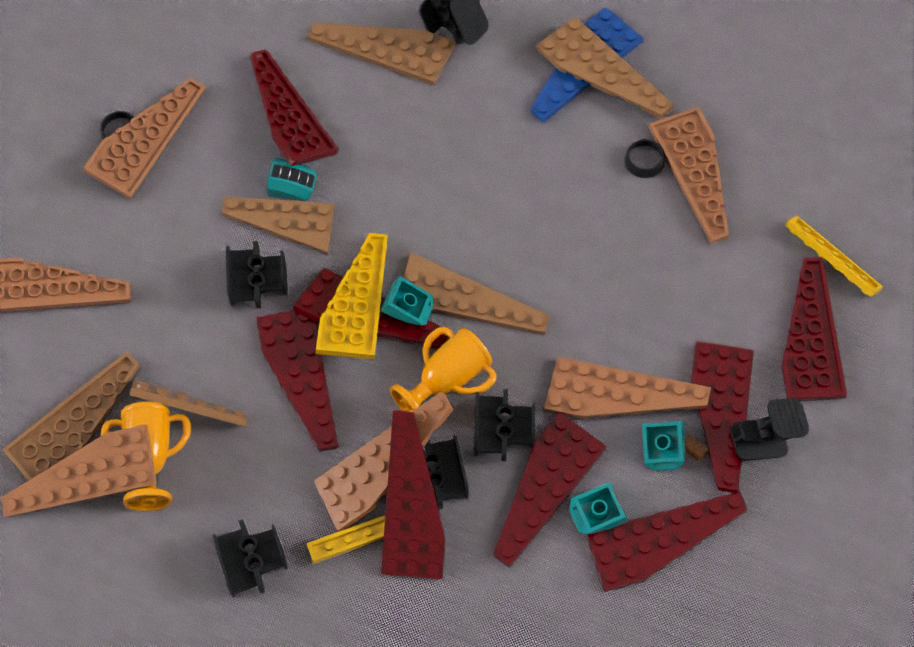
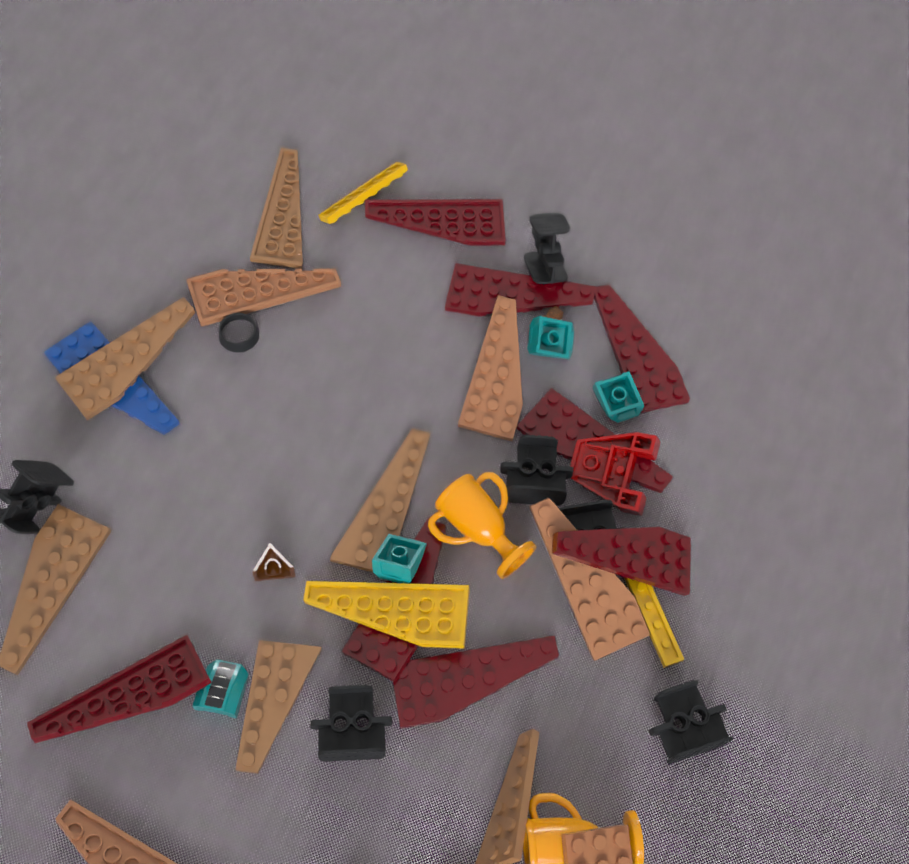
camera: 95 degrees left, 0 degrees up
(402, 206) = (272, 566): none -> reddish brown slope
(510, 495) = (607, 467): none -> red wedge
(775, 182) = (279, 230): none -> medium nougat wing

